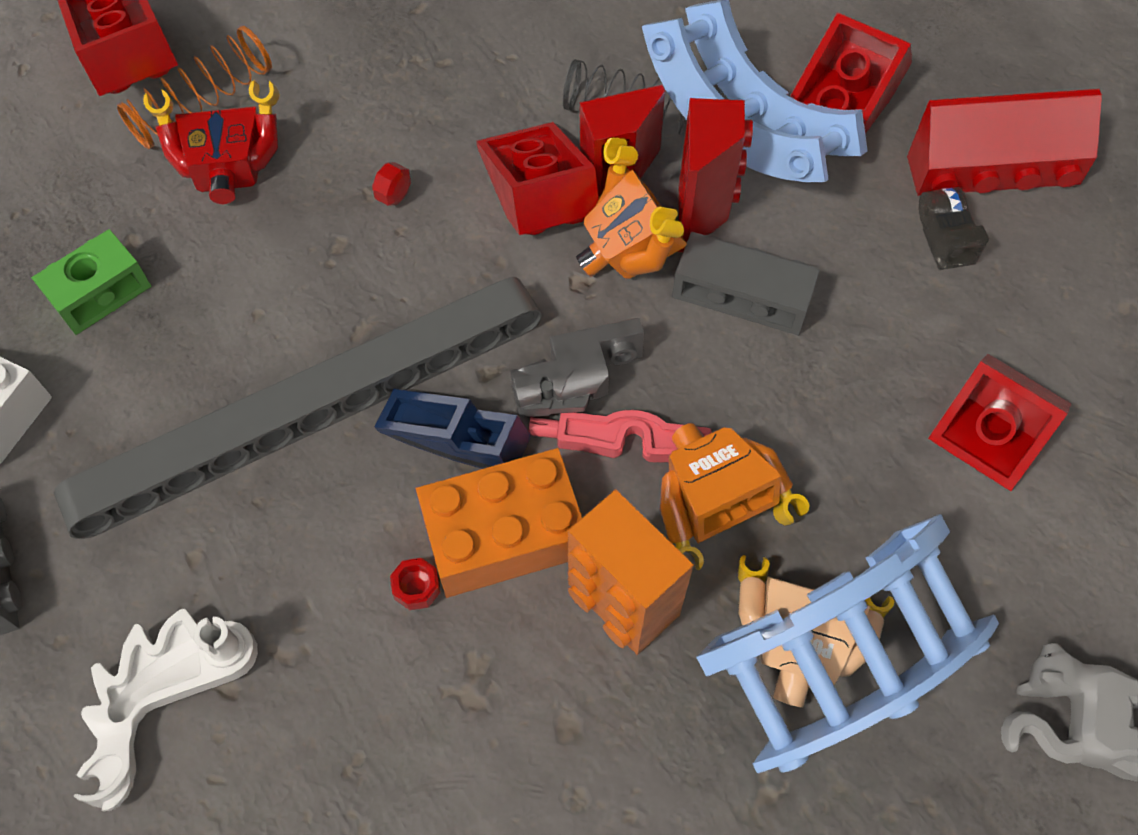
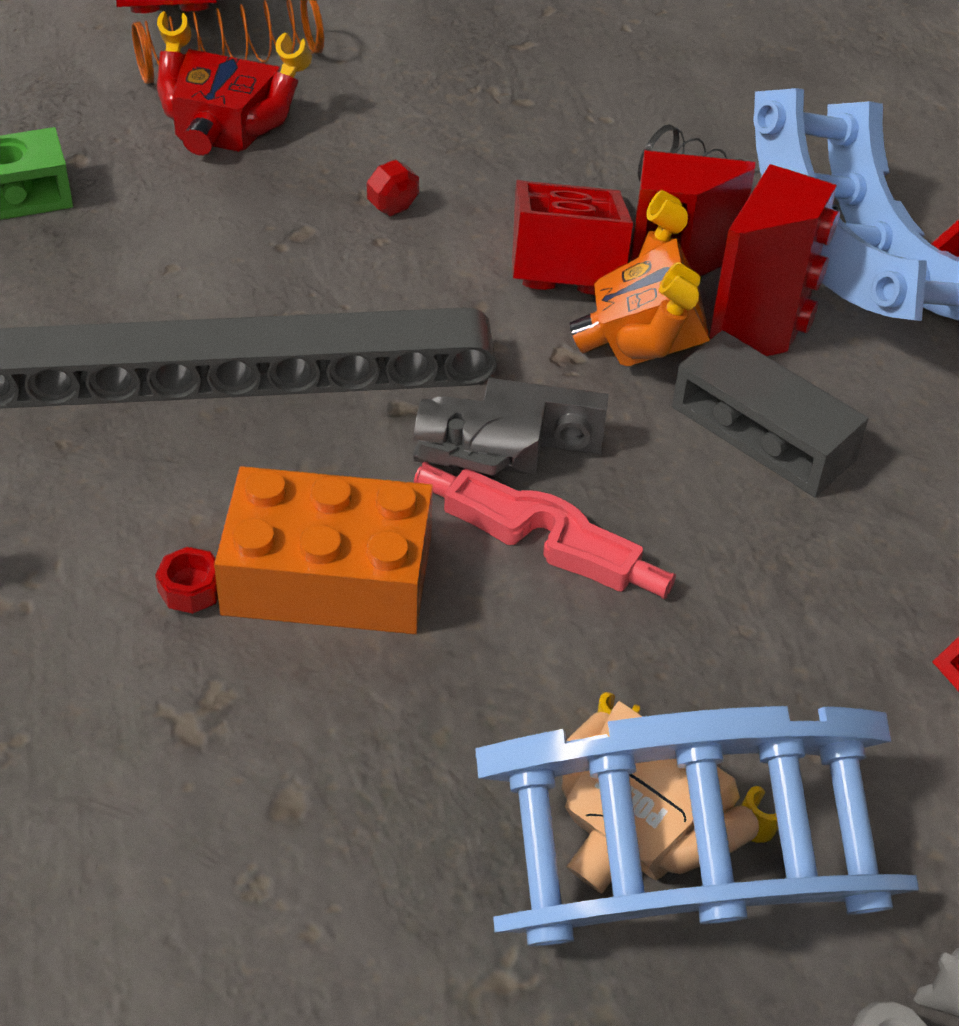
camera: 20 degrees right, 15 degrees down
(453, 428) = (323, 435): dark blue slope -> none
(626, 572) = (436, 631): orange brick -> none
(719, 484) = (617, 596): orange torso -> none

